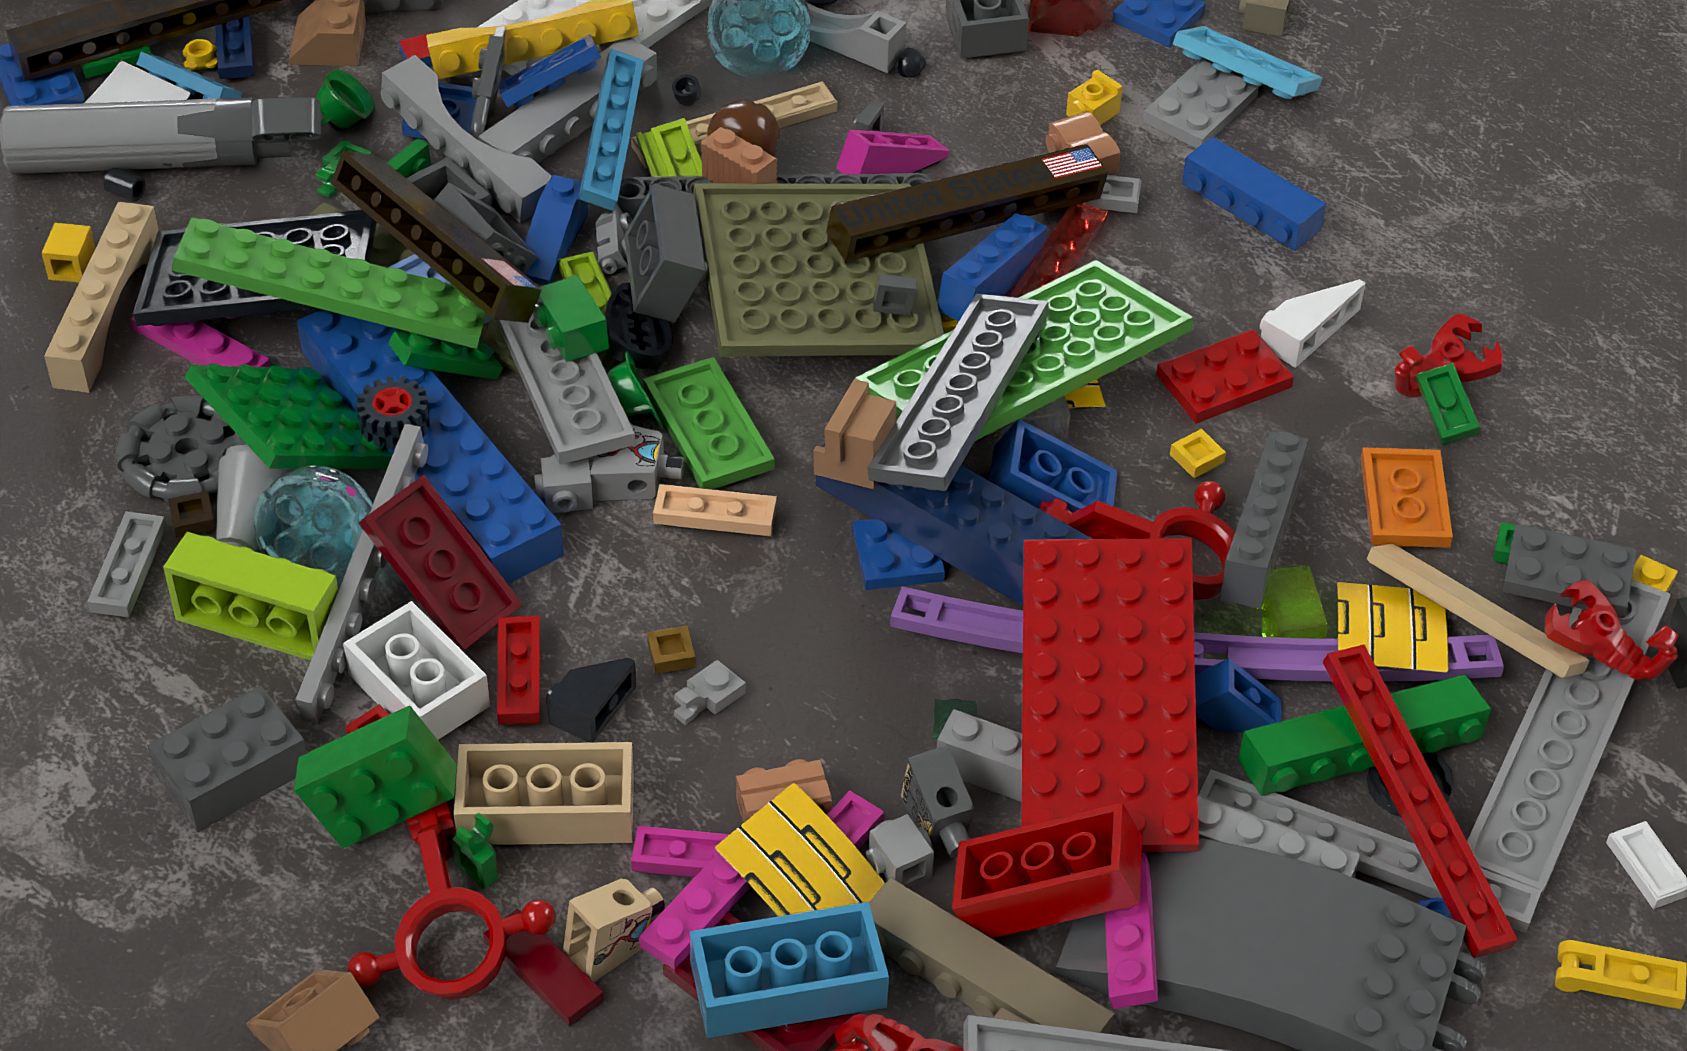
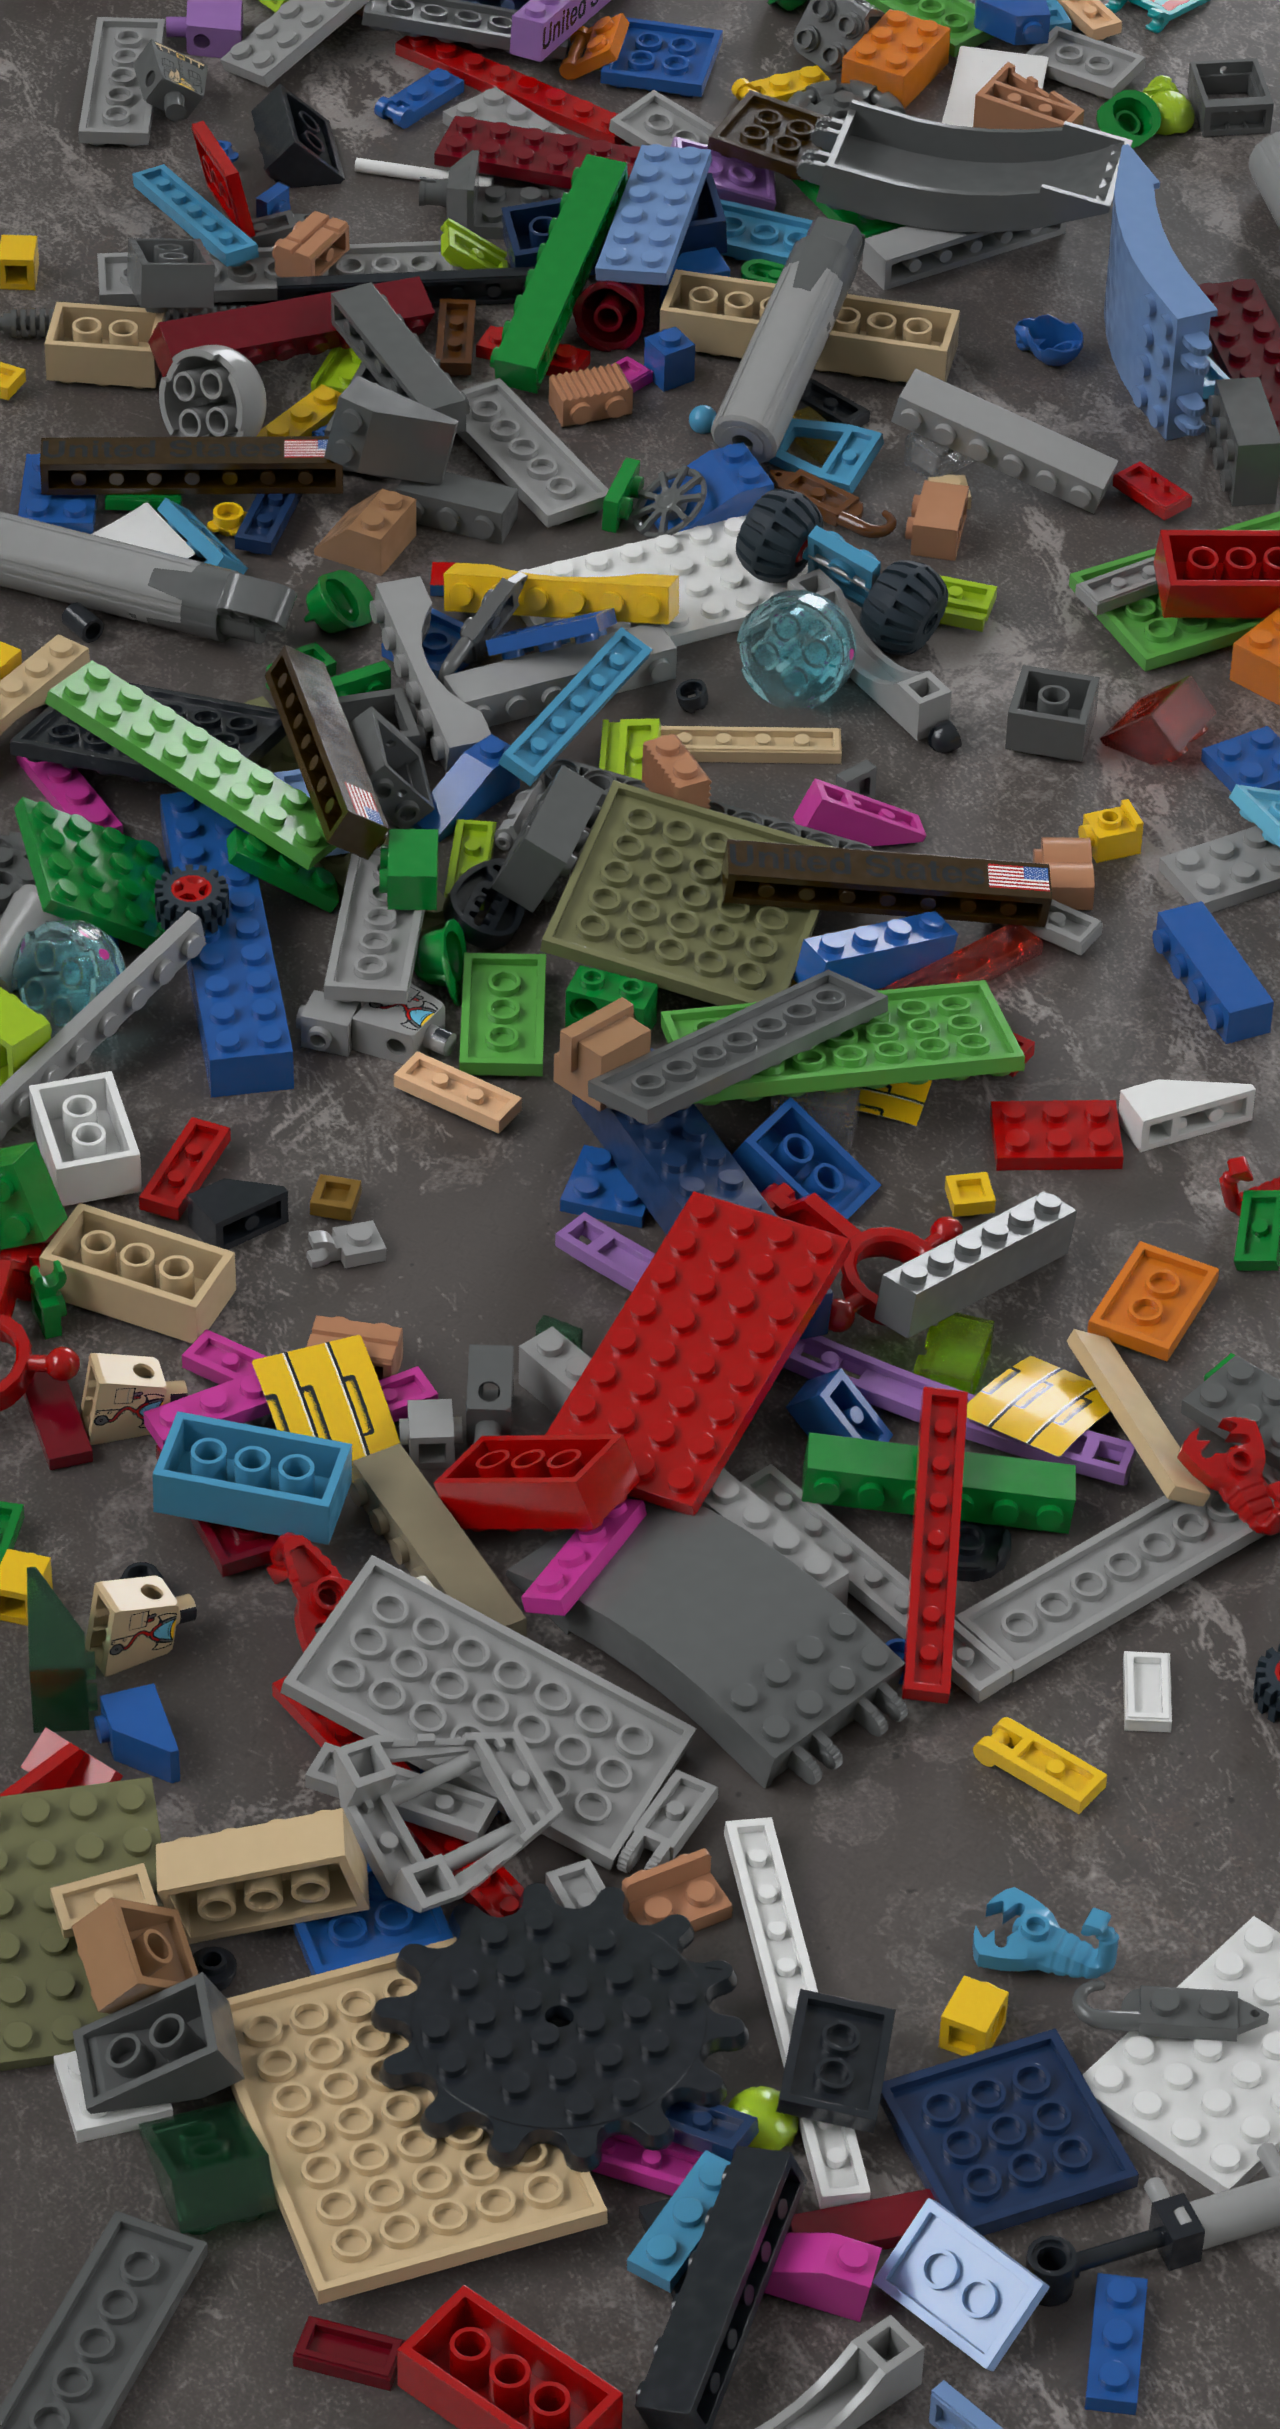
camera: 25 degrees right, 5 degrees down
(440, 563) = (158, 1048): dark red plate -> none
(748, 121) = (717, 748): reddish brown cylinder -> none
(798, 385) = (597, 988): none -> green brick
(894, 294) = (745, 945): dark grey plate -> none

